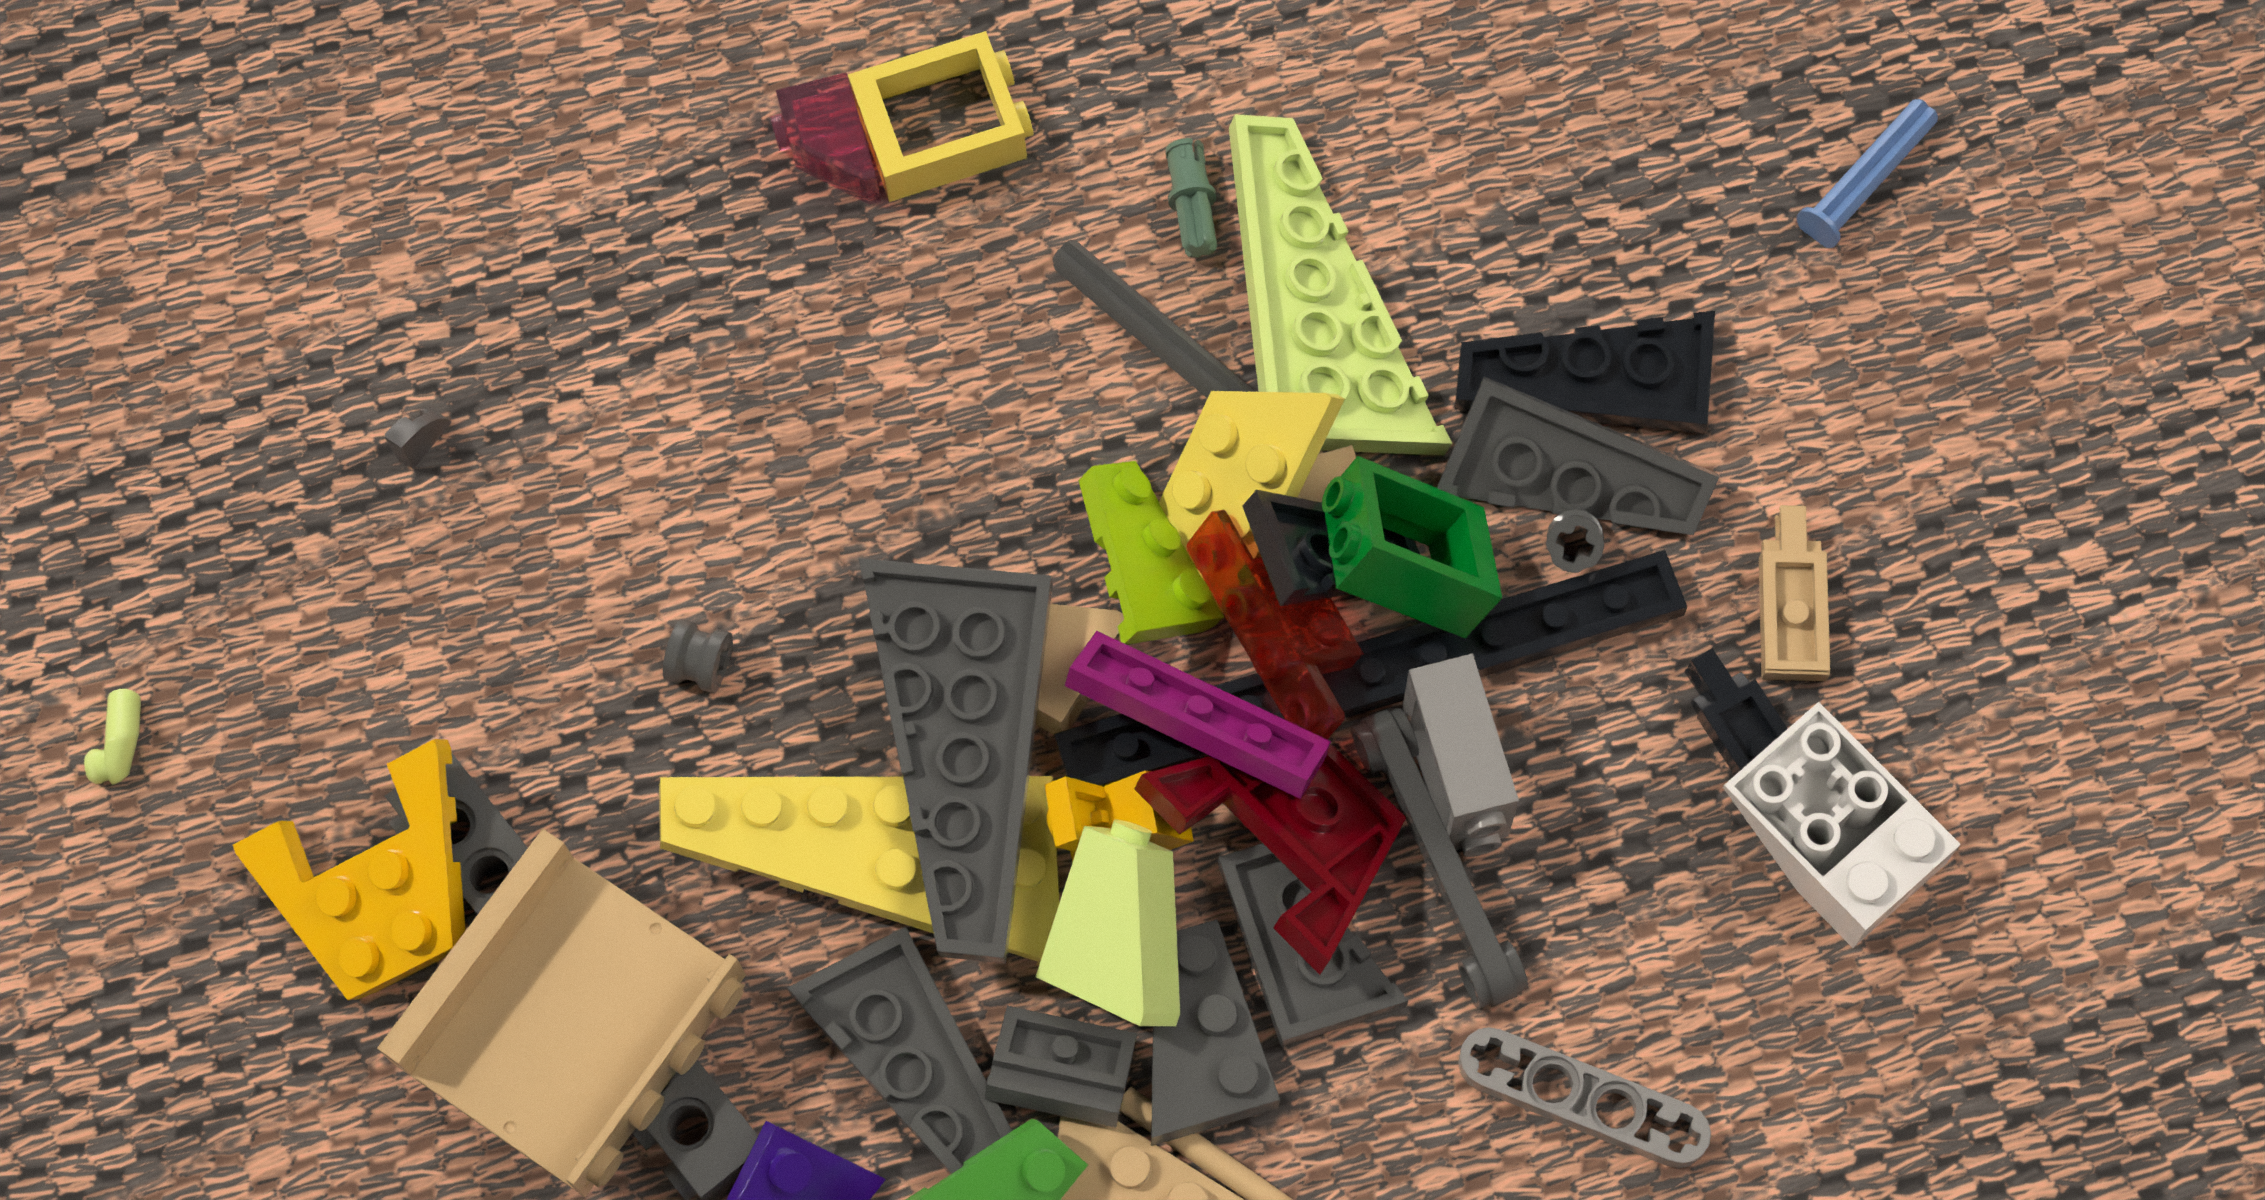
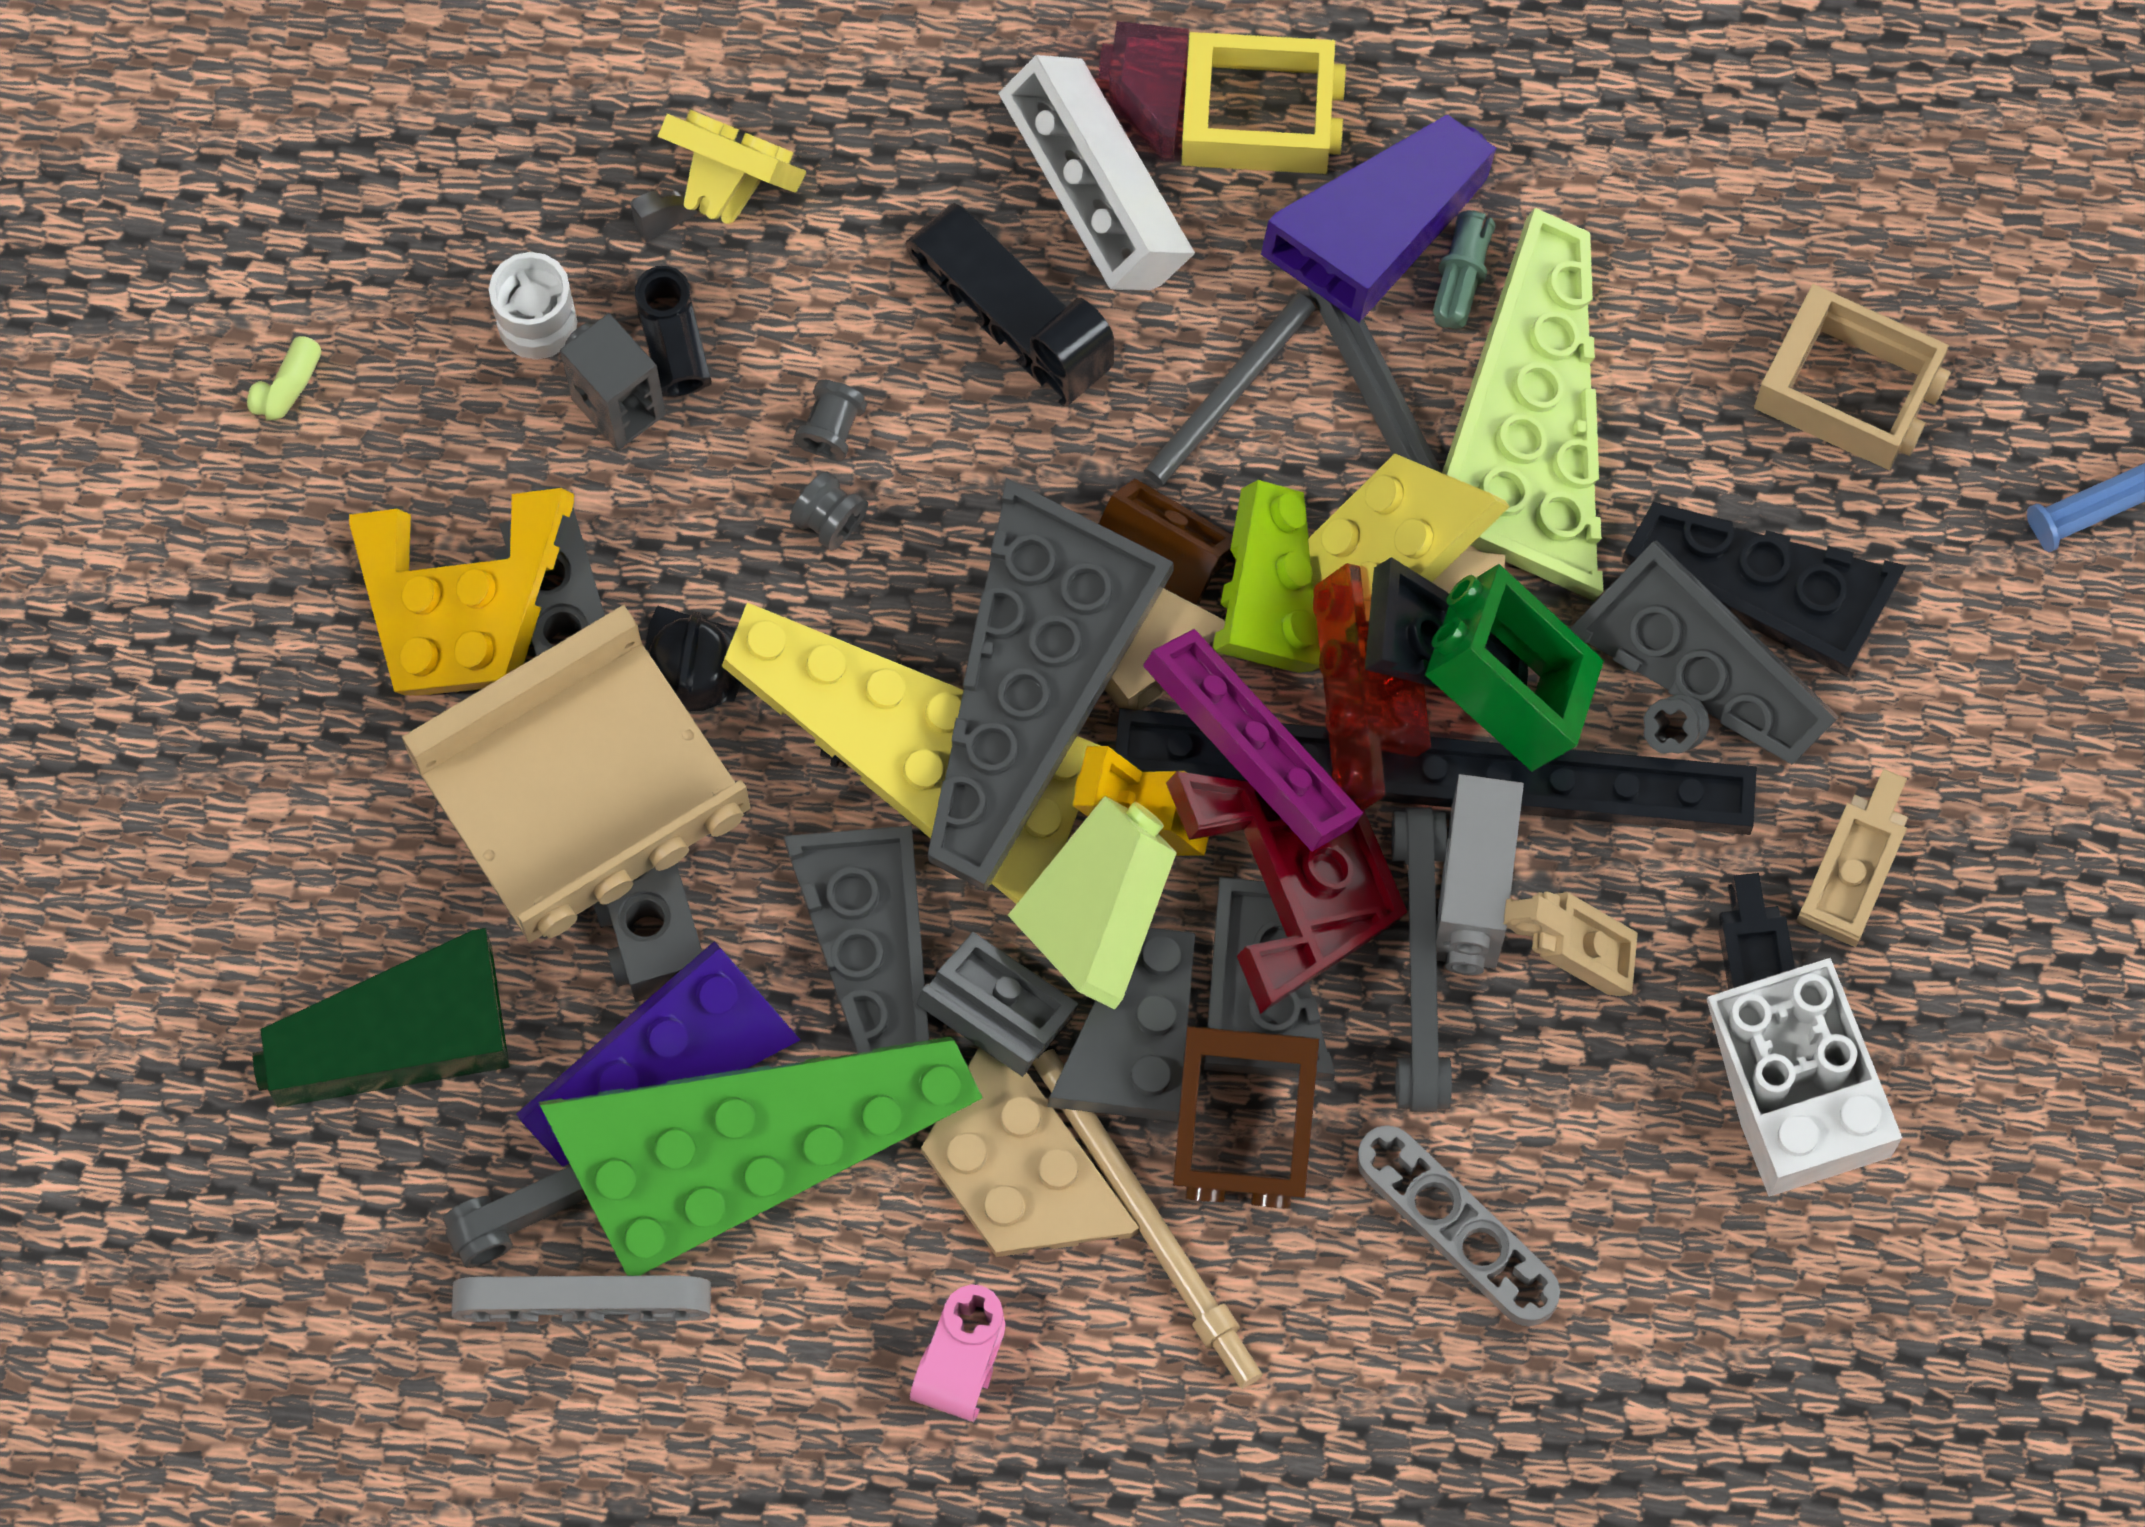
camera: 20 degrees right, 0 degrees up
(330, 571) = (532, 305): none -> white wheel
(438, 614) = (612, 380): none -> dark grey brick
(463, 371) = (727, 171): none -> light yellow plate
(476, 547) = (672, 333): none -> black piece
(625, 848) = (692, 656): none -> black piece
(662, 568) = (830, 420): none -> dark grey bush
(815, 238) = (1096, 173): none -> white brick
(842, 412) = (1055, 342): none -> black beam
(1024, 392) = (1229, 389): none -> dark grey bar
(1030, 547) = (1173, 532): none -> reddish brown panel
(1095, 179) = (1379, 217): none -> dark purple slope
(1323, 1009) = (1265, 1190): none -> reddish brown window
(1579, 780) = (1577, 939): none -> tan hinge
(1590, 111) = (1869, 332): none -> tan window

